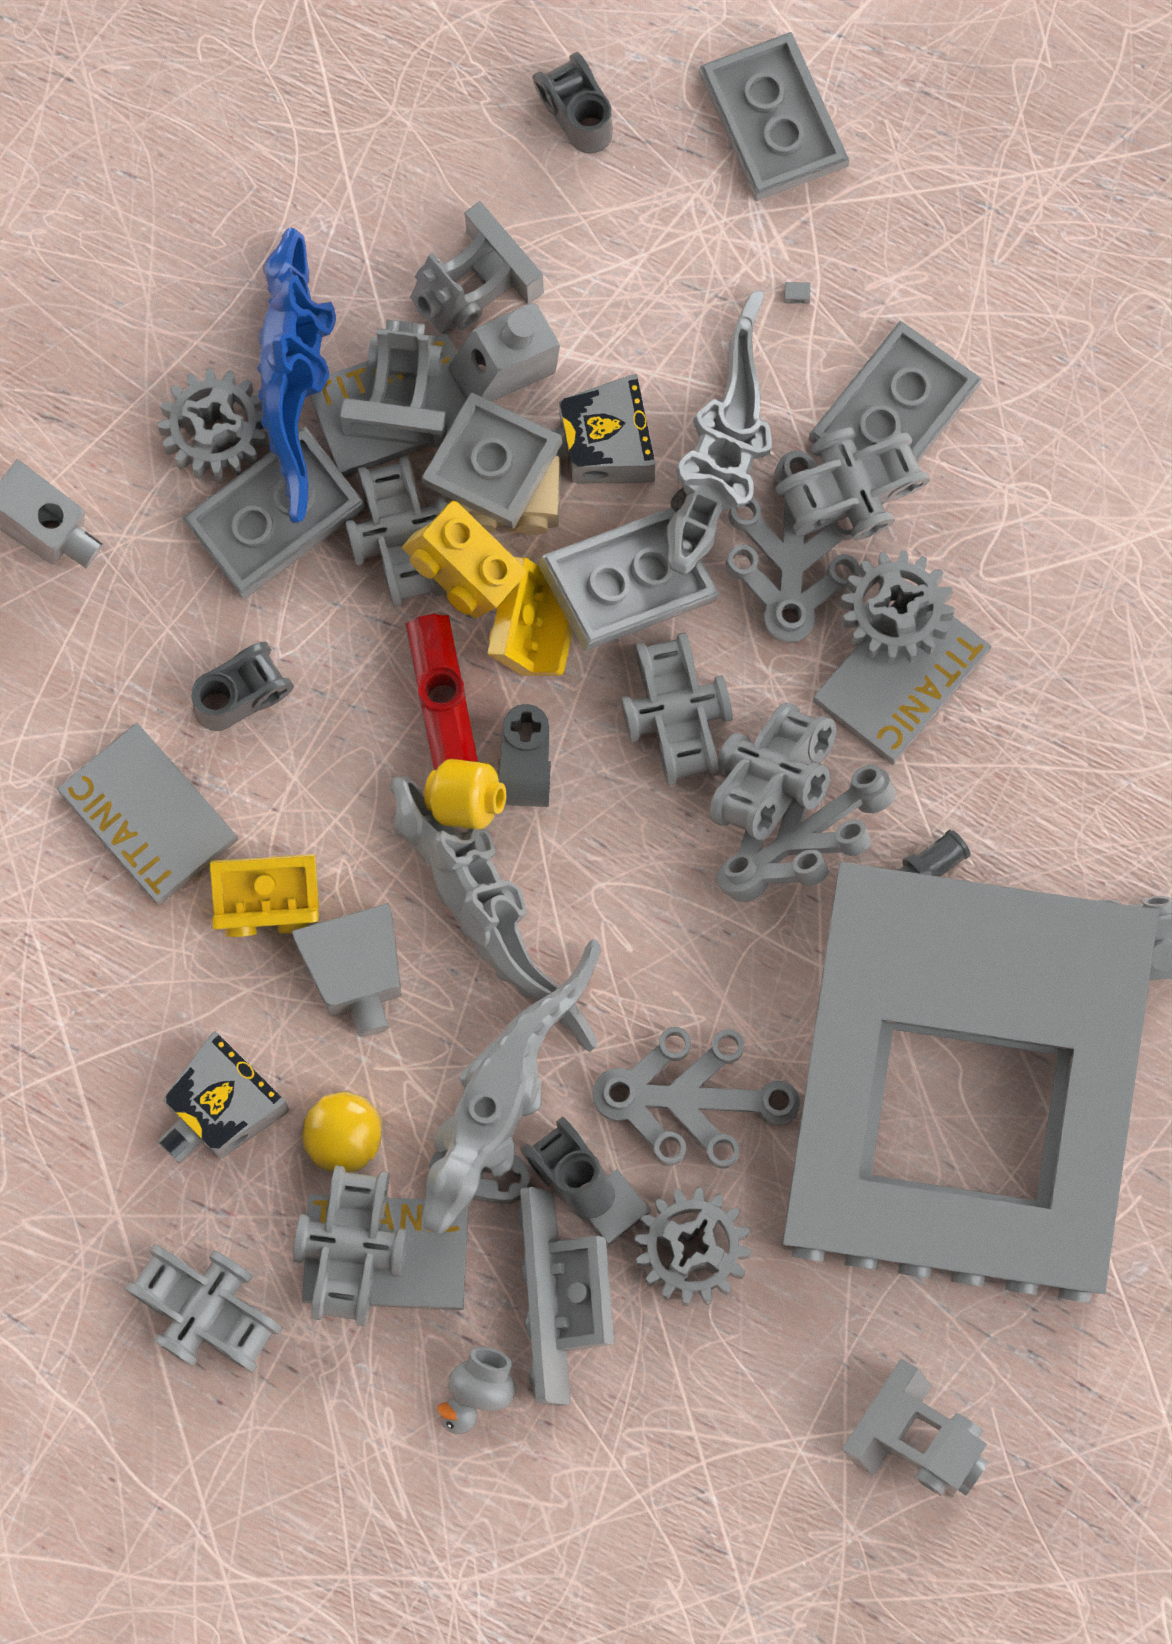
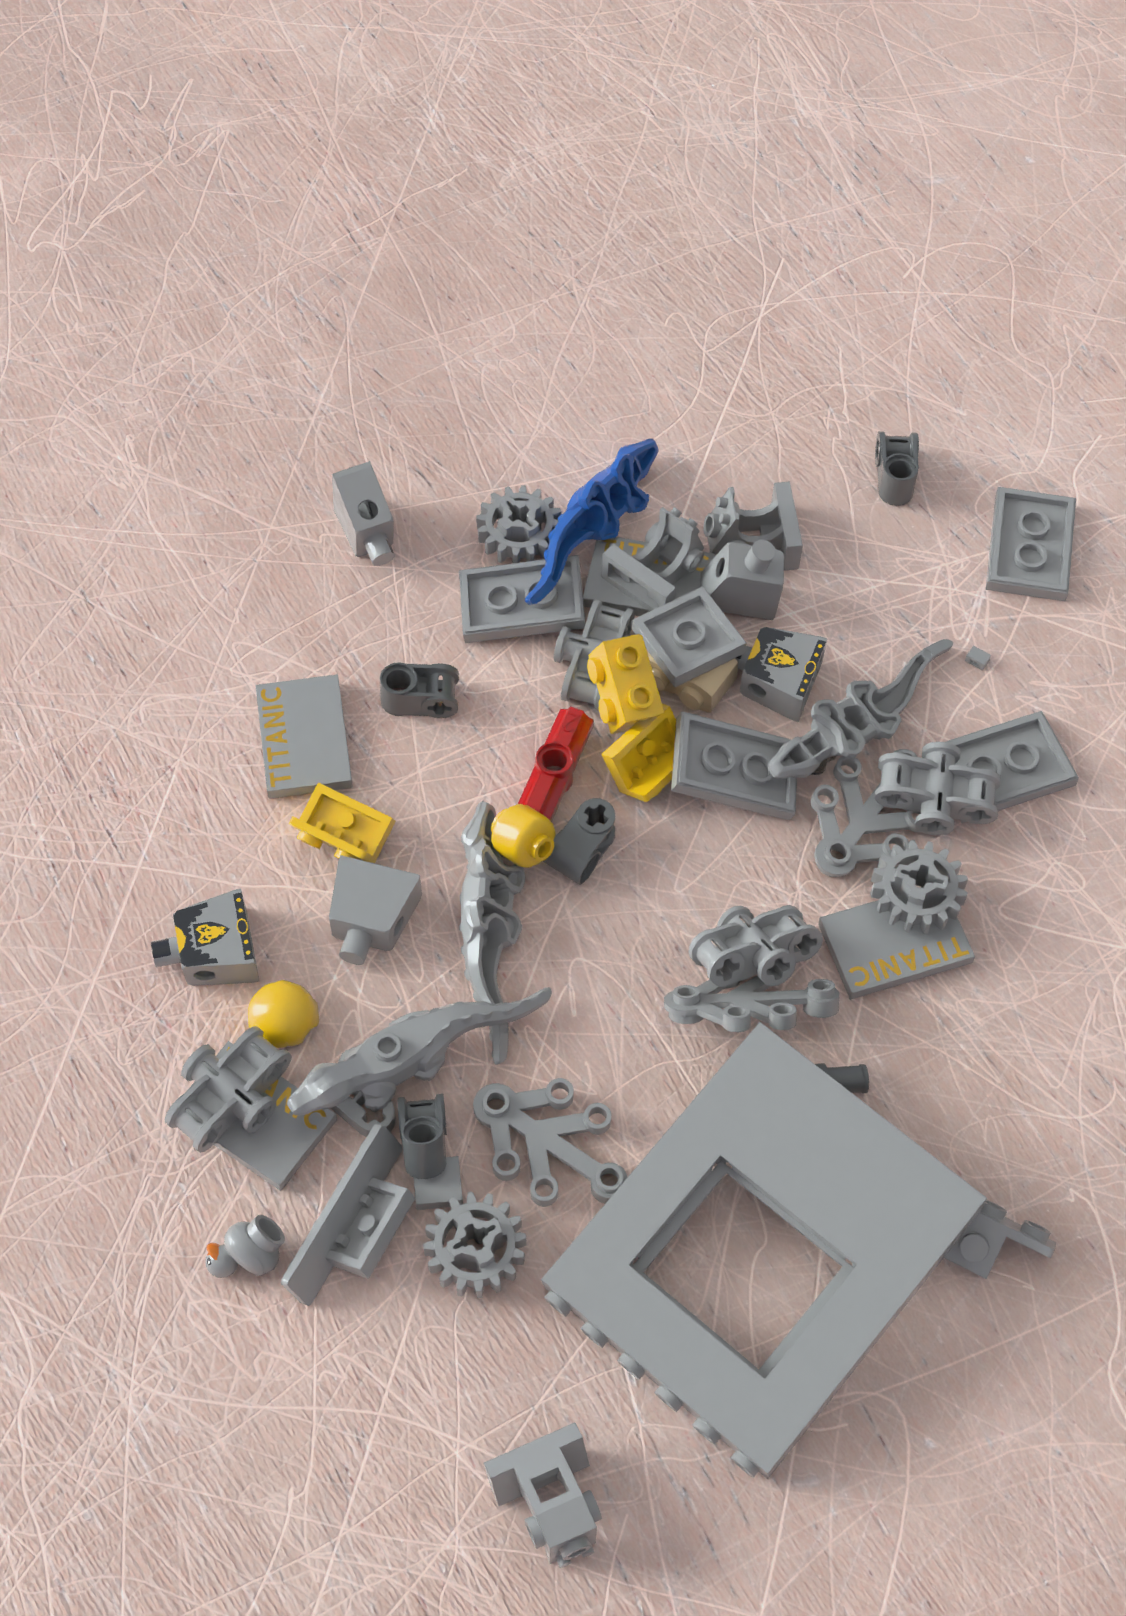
camera: 30 degrees right, 15 degrees down
(203, 1308) = (99, 1073): light grey axle -> none
(677, 709) = (713, 870): light grey axle -> none

